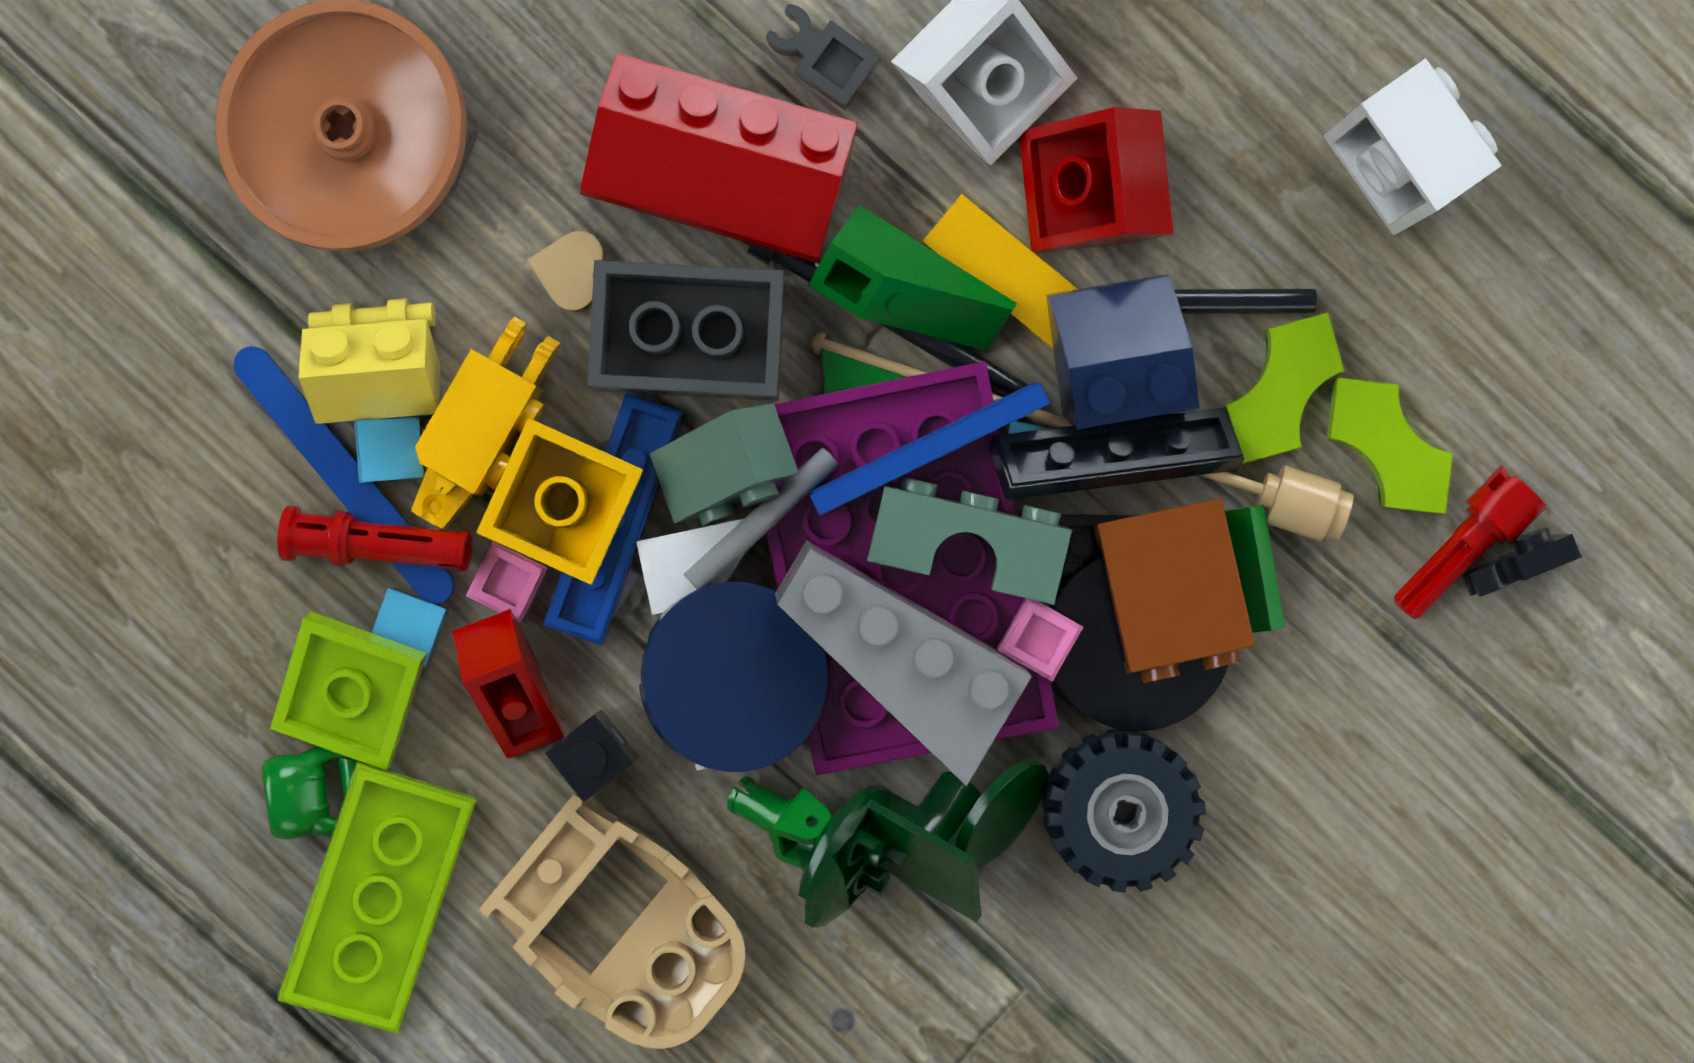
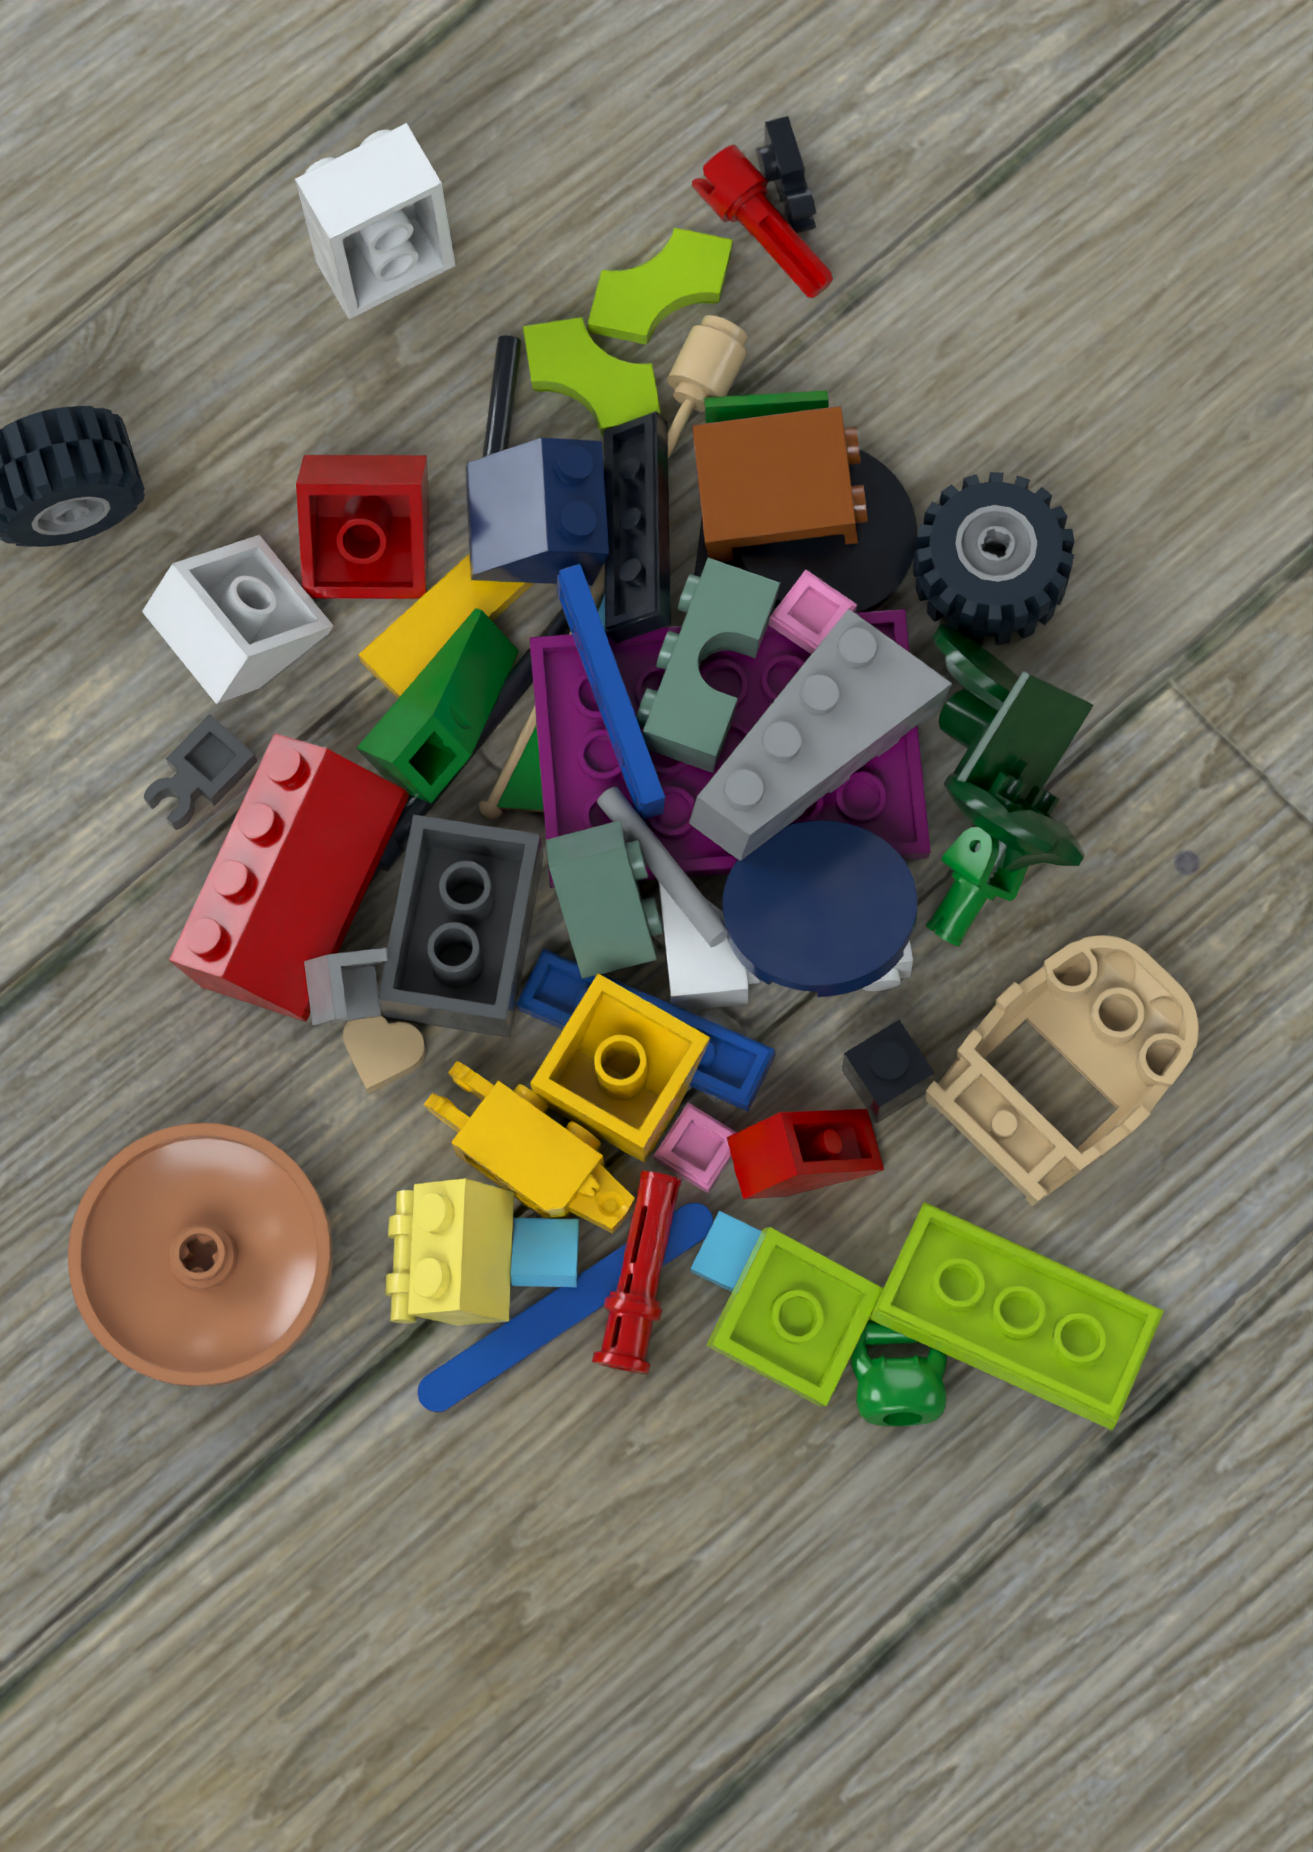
camera: 80 degrees left, 15 degrees down
(611, 225) = (344, 986): none -> light grey panel

